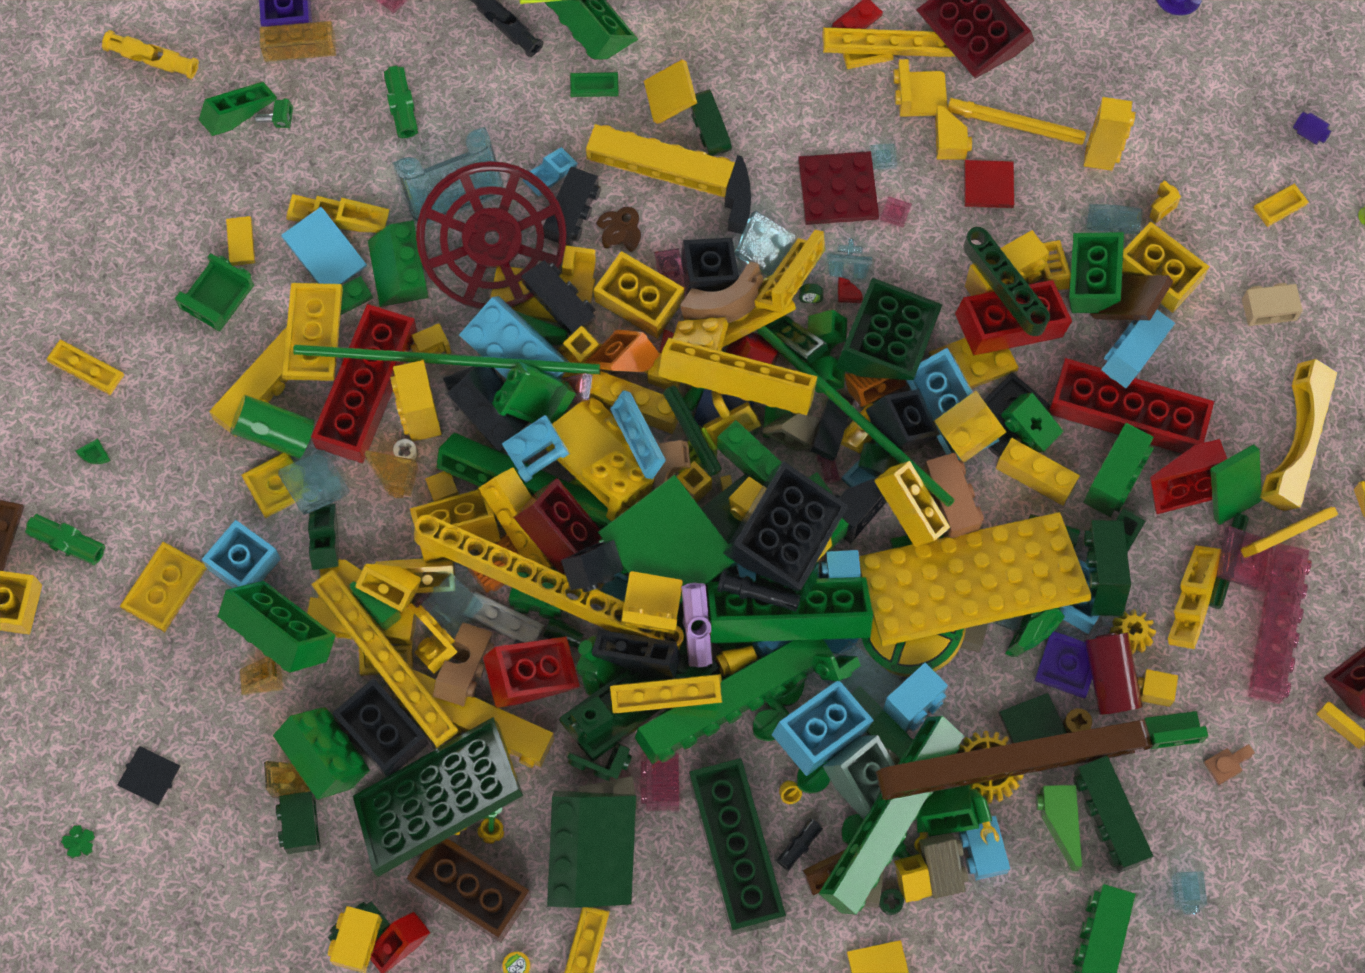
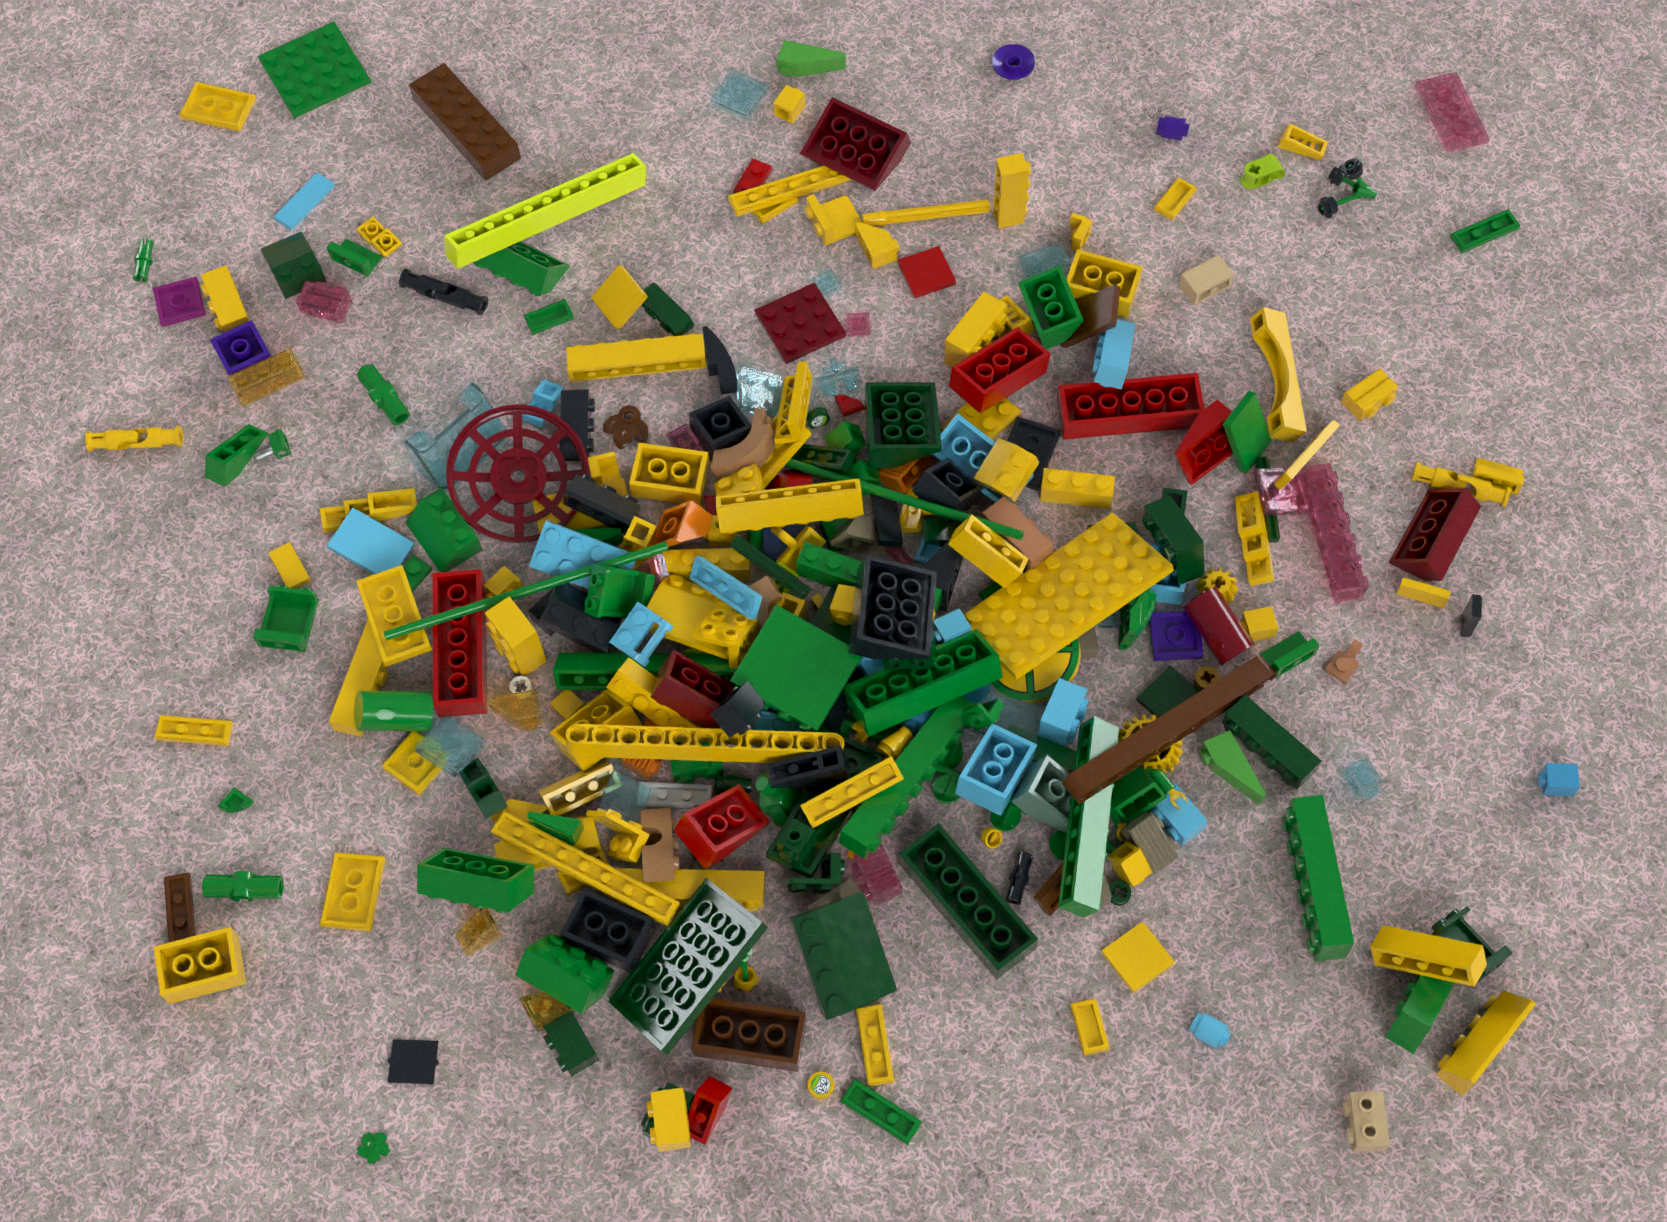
camera: 20 degrees left, 5 degrees down
(241, 557) = (414, 835): medium azure brick -> none
(389, 584) = (562, 801): yellow slope -> none
(651, 602) = (804, 720): yellow bracket -> none
(695, 609) = (858, 738): lavender piece -> none
(746, 587) = (880, 675): black pin -> none
(1006, 292) = (978, 330): dark green beam -> none
(1032, 422) = (1055, 448): green brick -> none
(1120, 470) = (1146, 460): green brick -> none

